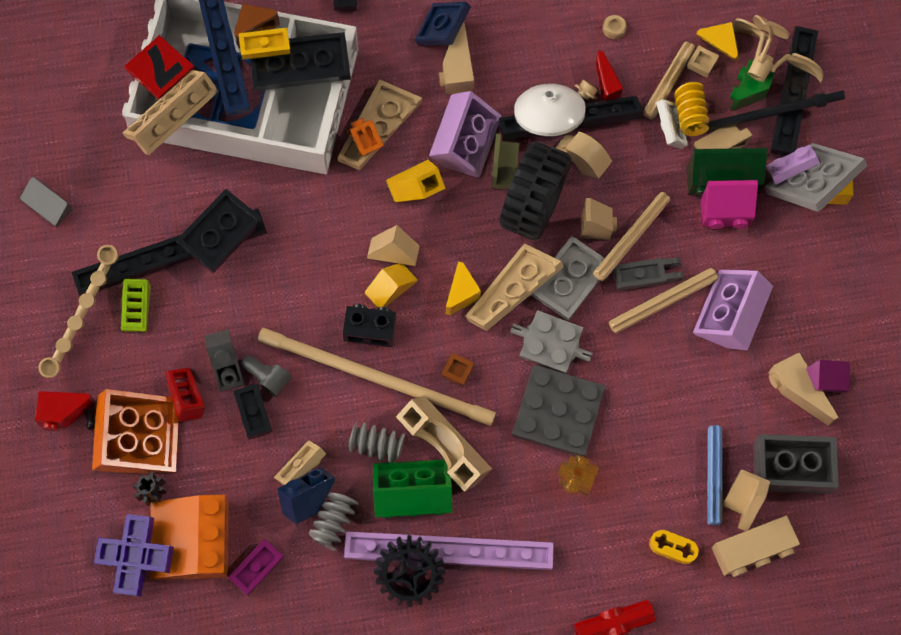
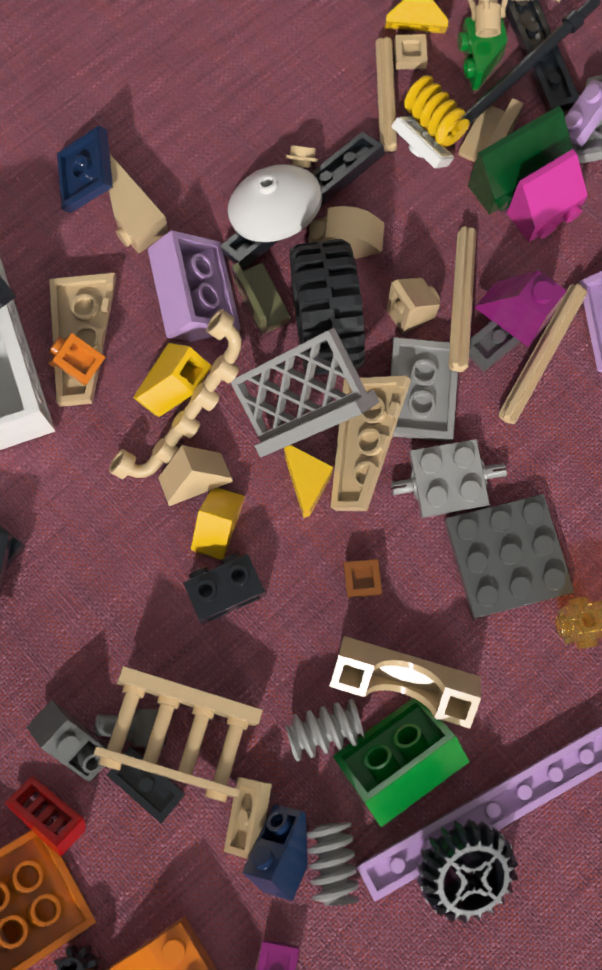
camera: 30 degrees left, 5 degrees up
(298, 367) = (204, 708): none -> tan fence
(428, 203) = (203, 397): none -> tan bar
(472, 411) = (412, 618): tan piece -> none
(489, 253) = (319, 417): none -> light grey fence
(608, 80) = (316, 129): red slope -> none
(614, 27) = (285, 67): tan tile -> none
(662, 261) = (522, 304): none -> magenta slope

